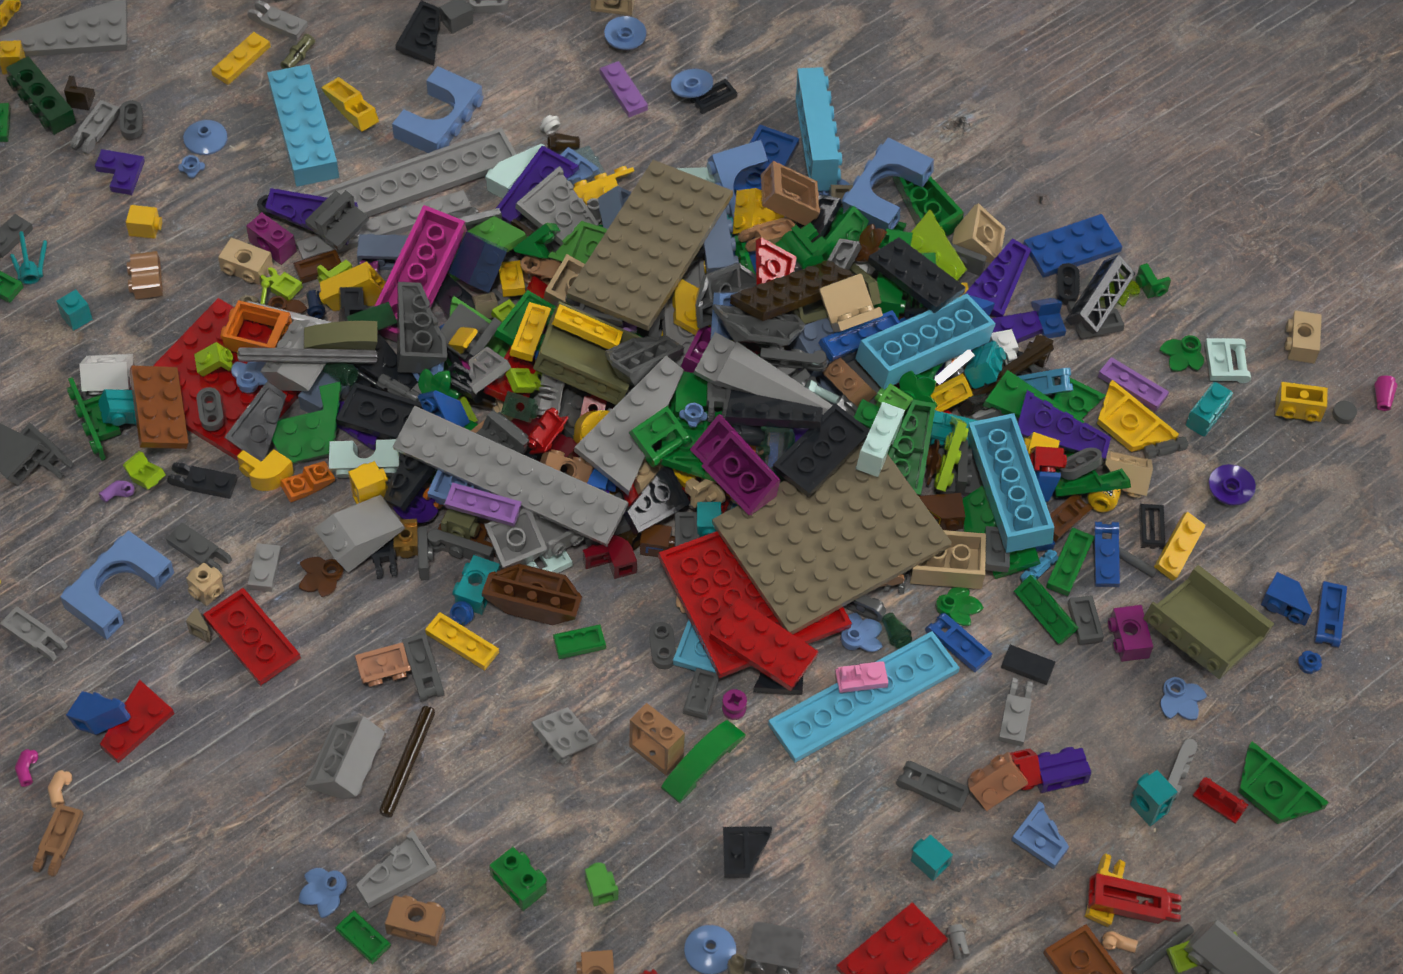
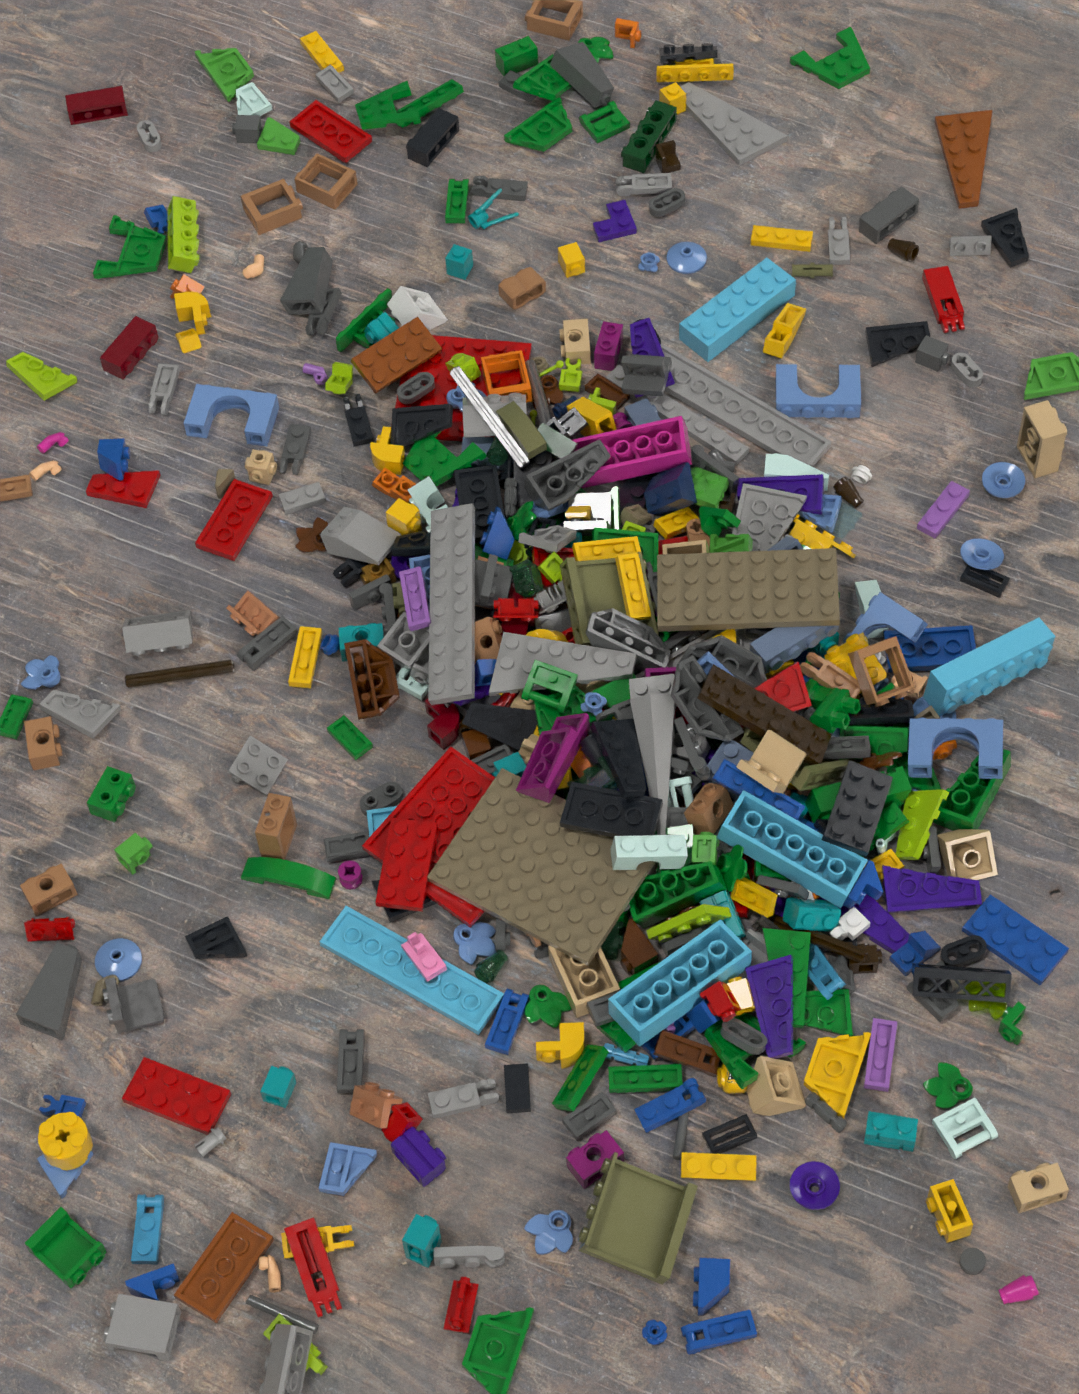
camera: 70 degrees right, 0 degrees up
(1011, 604) = (567, 1049): none -> yellow brick

